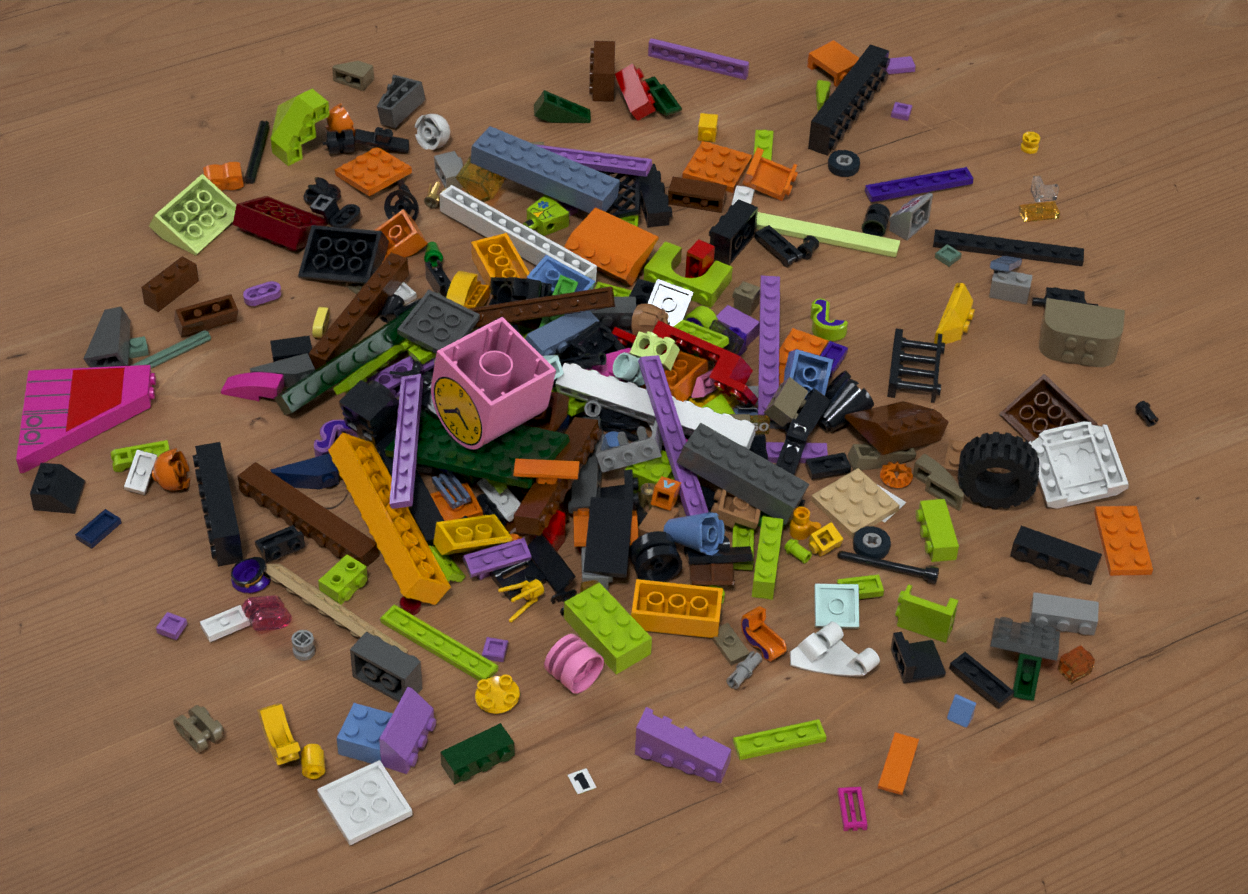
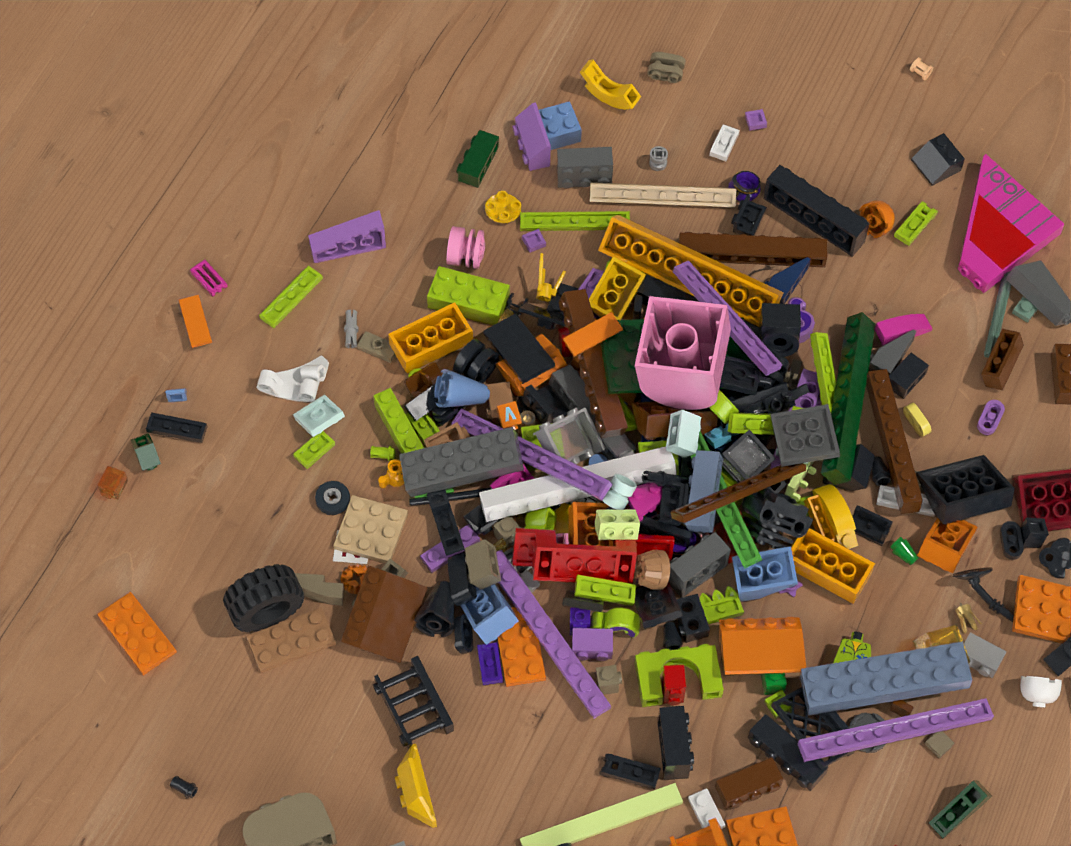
camera: 145 degrees right, 15 degrees up
(98, 528) = (881, 156): dark blue tile -> none
(140, 472) = (900, 206): white plate -> none
(266, 613) = (707, 170): clear pink brick -> none
(312, 761) = (576, 91): yellow brick -> none
(343, 579) = (678, 217): lime brick -> none
(364, 802) = (520, 87): white plate -> none
(492, 222) = (852, 608): white brick -> none
(581, 781) = (400, 190): white sticker -> none
(761, 635) = (355, 359): orange animal -> none
(808, 246) = (602, 786): black bush -> none
(821, 326) = (525, 697): lime animal -> none
(828, 465) = (414, 547): black plate -> none
(829, 535) = (366, 471): yellow brick -> none
(916, 660) = (234, 412): black bracket -> none
(925, 616) = (245, 441): lime panel -> none
(929, 574) = (270, 495): black piece -> none
(937, 530) = (288, 538): lime brick -> none
(1025, 638) = (159, 470): dark grey plate -> none
(1043, 408) = (260, 718): reddish brown slope -> none
(1056, 555) = (181, 575): black brick -> none
(1064, 613) = (145, 522): light grey brick -> none
(1078, 464) = (211, 669): white wedge -> none

